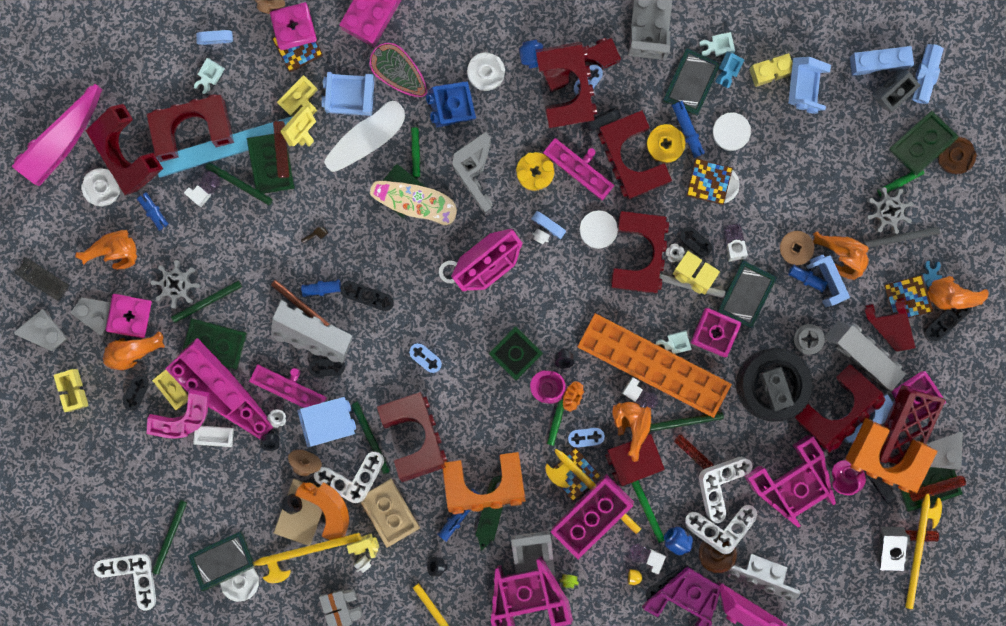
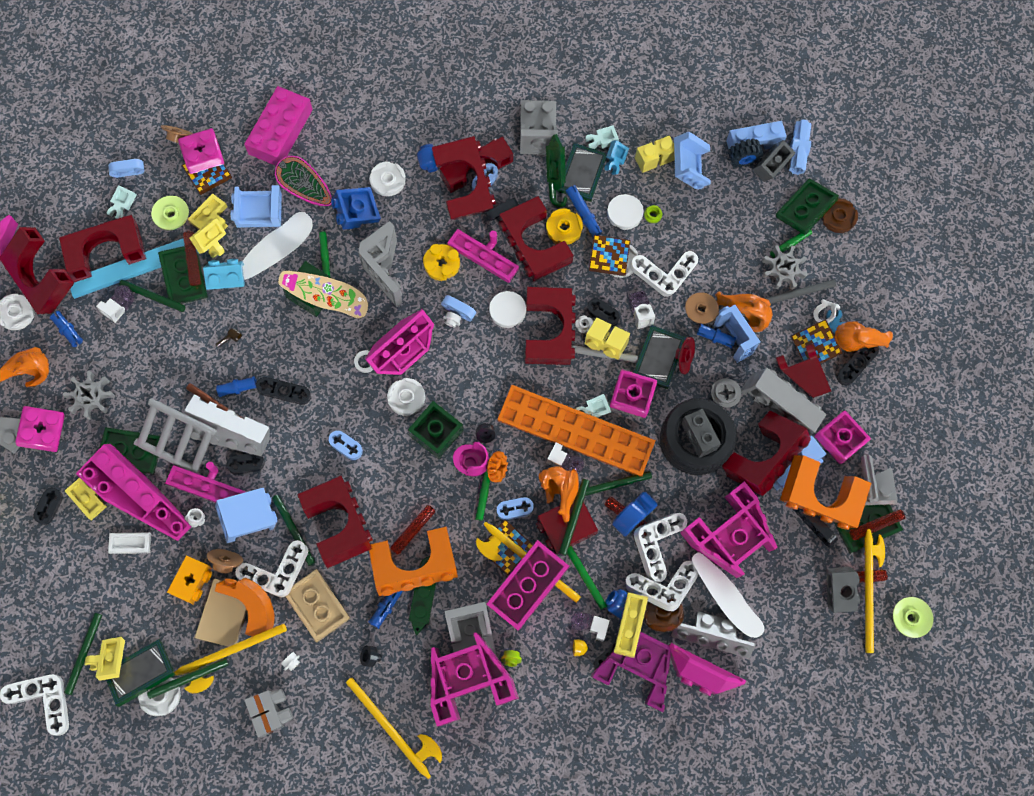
camera: 10 degrees left, 15 degrees down
(122, 353) = (32, 465): orange hair -> none
(183, 425) = (107, 522): dark pink plate -> none
(194, 547) = (109, 660): none -> light yellow plate
(207, 301) = (121, 410): dark green piece -> none
(252, 86) = (167, 206): none -> yellowish green dish
(260, 322) = (190, 424): none -> light grey bar
(262, 483) = (188, 570): none -> light orange brick
(266, 571) = (187, 678): none -> dark green bar
(269, 441) = (188, 542): black tile -> none
(291, 504) = (212, 603): black tile -> none
(312, 166) = (224, 275): none -> medium azure bracket
(366, 542) = (287, 638): light yellow bracket -> none
(486, 448) = (412, 529): none -> clear red axle
(493, 310) = (406, 397): none -> white tile
(642, 456) = (574, 517): none -> dark green bar
(663, 84) = (555, 169): none -> dark green plate
(685, 565) = (631, 625): none -> light yellow tile
(702, 455) = (634, 513): none -> blue animal
(766, 135) = (653, 209): none -> lime plate
(768, 211) = (668, 278): none -> white beam
(772, 298) = (685, 355): none -> dark red dish
(781, 543) = (728, 597): none -> white sticker
(847, 480) = (785, 522): dark pink helmet -> none
(867, 79) = (745, 153): none -> black wheel
(896, 423) = (825, 452): dark red fence -> none
(932, 262) = (834, 307): none -> white piece
(937, 443) = (869, 475): none -> light grey axle
(965, 580) = (921, 613): none -> yellowish green dish

